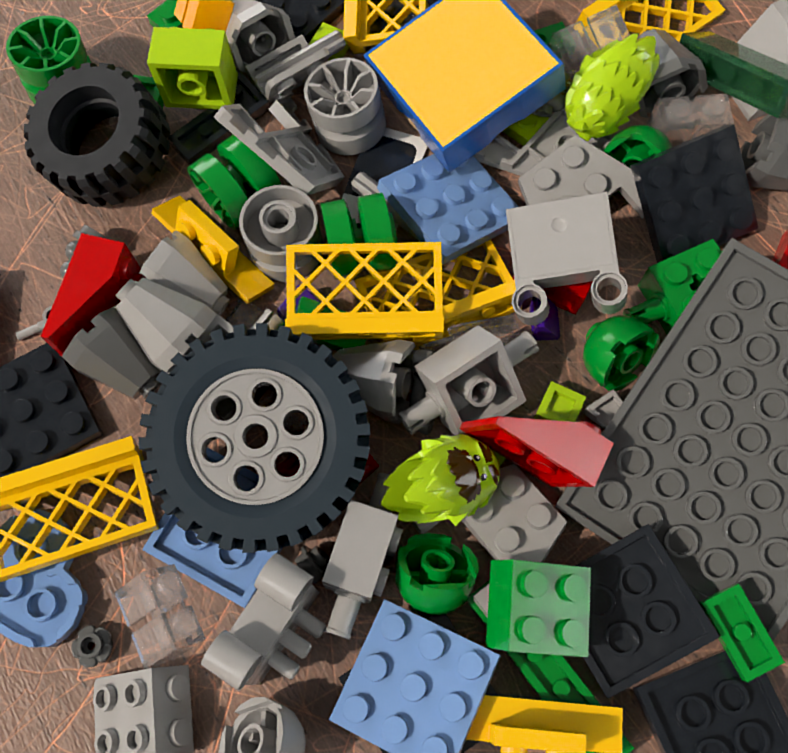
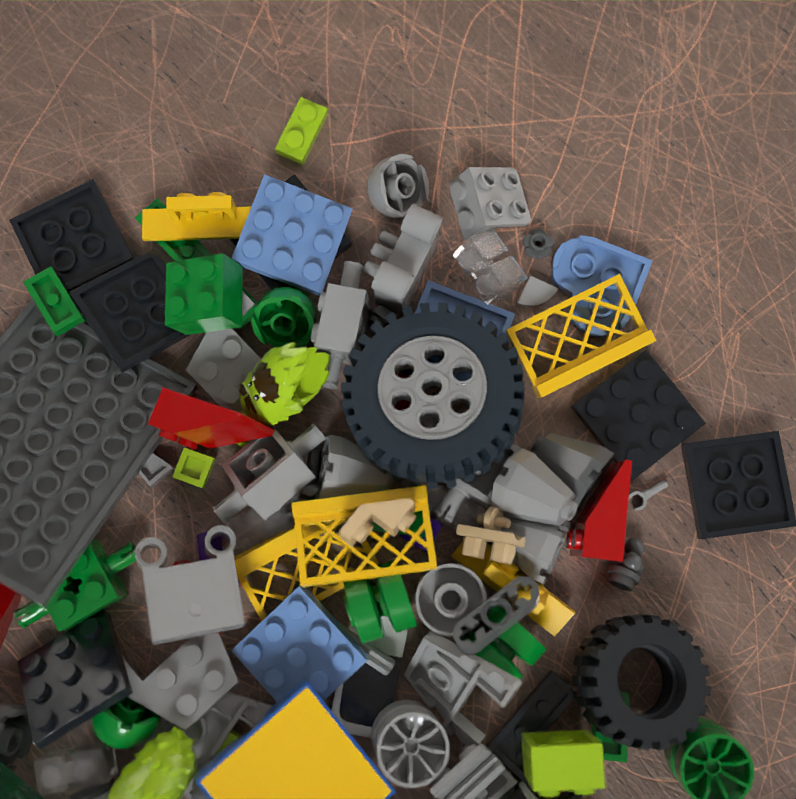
camera: 170 degrees right, 10 degrees up
(110, 577) = (536, 293): none -> light grey tile
(220, 284) = (503, 542): none -> tan hips
(232, 177) = (522, 608): none -> dark grey beam
(329, 300) = (389, 515): none -> tan slope
(617, 349) = (149, 517): green cylinder -> none

